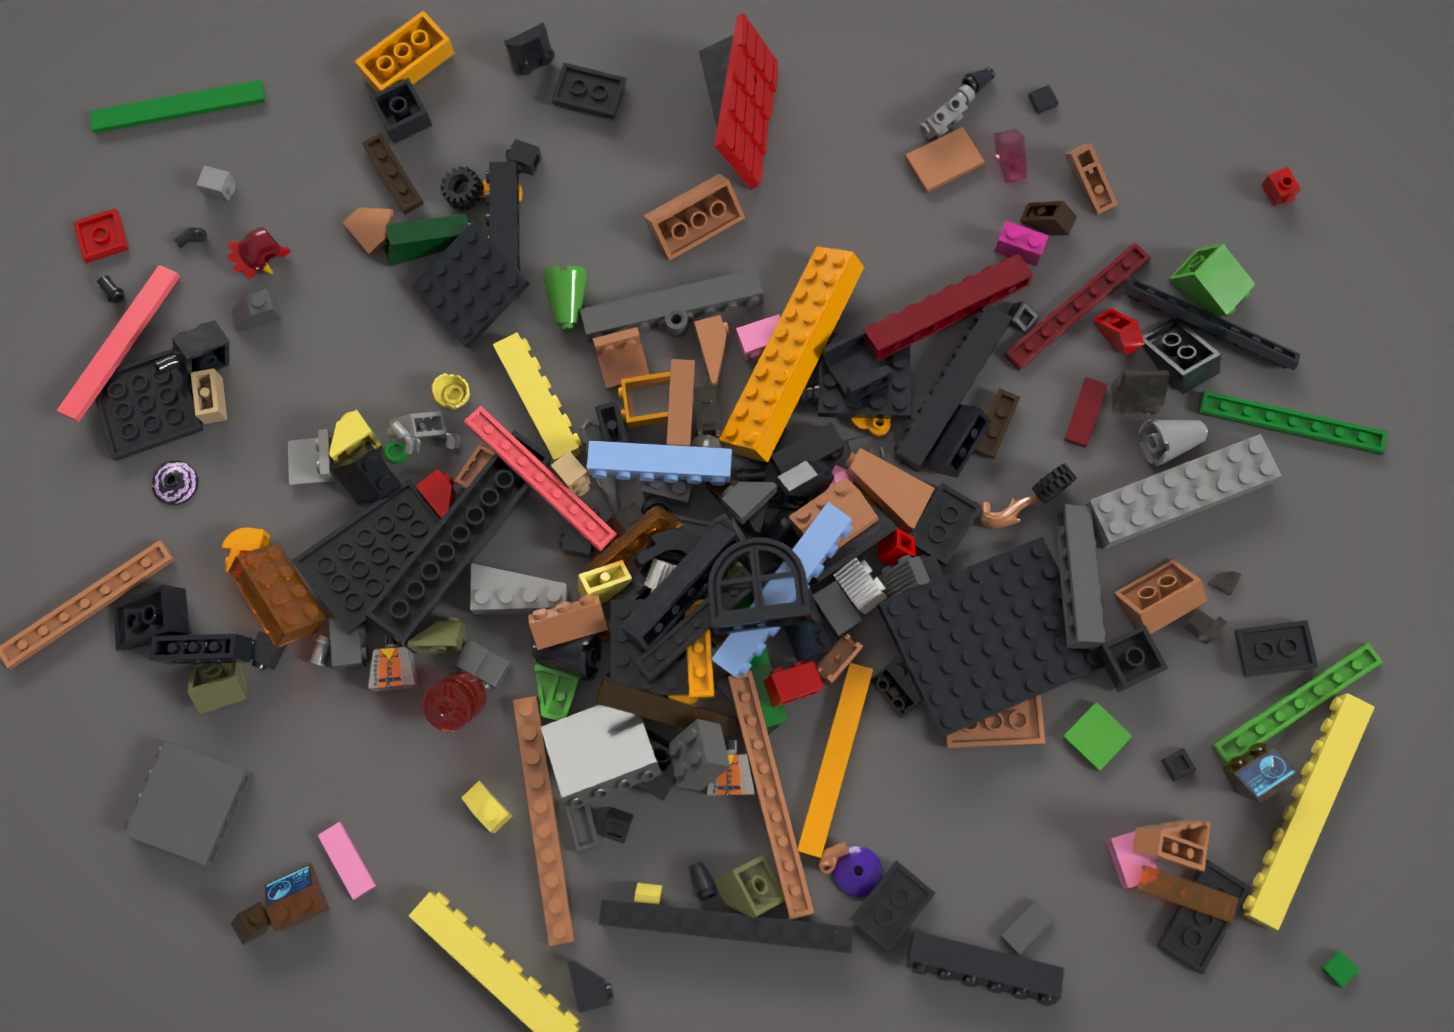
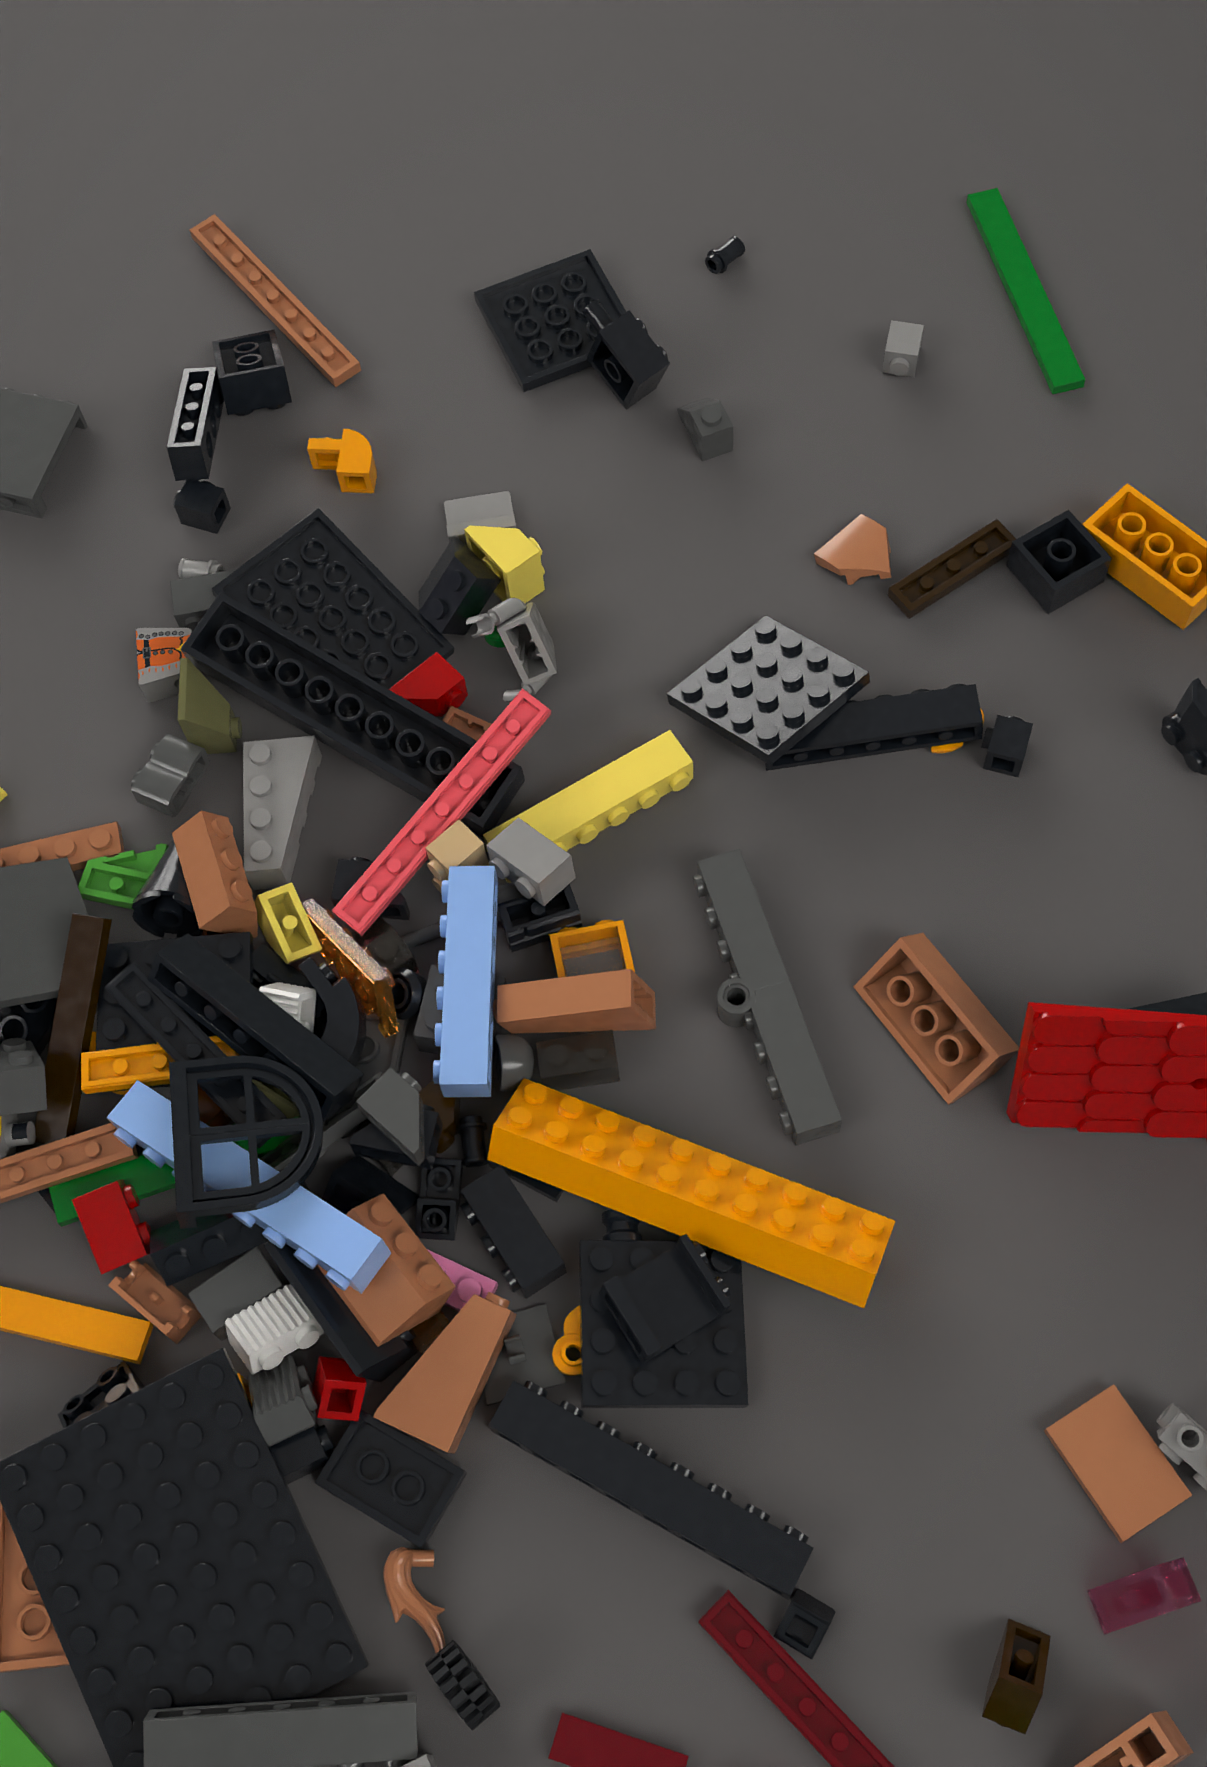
camera: 90 degrees right, 10 degrees down
(101, 235) = (807, 233): red tile -> none
(118, 344) = (643, 273): coral tile -> none
(182, 489) = (447, 372): dish -> none
(191, 234) = (820, 333): black arm -> none
(209, 396) = (567, 384): tan brick -> none
(216, 685) = (146, 456): olive slope -> none
(255, 252) = (797, 410): dark red piece -> none
(276, 594) = (272, 500): clear orange brick -> none
(421, 237) = (843, 615): dark green slope -> none
(450, 391) = (594, 684): light yellow hair -> none
(454, 701) = (107, 736): clear red wheel -> none
(457, 178) = (941, 649): black tyre -> none
(565, 293) = (767, 827): bright green cone -> none
(582, 425) = (530, 862): none -> light grey brick
(589, 90) = (1149, 832): black plate -> none
(620, 356) = (665, 924): nougat bracket -> none
(712, 342) = (697, 1063): nougat slope -> none
(755, 337) = (718, 1129): bright pink slope -> none
(806, 479) = (454, 1223): black slope -> none
(947, 306) = (804, 1473): dark red brick -> none
(958, 440) = (542, 1497): black brick -> none
(1000, 416) = (584, 1574): dark brown plate -> none
(1021, 240) = (953, 1617): dark pink brick -> none

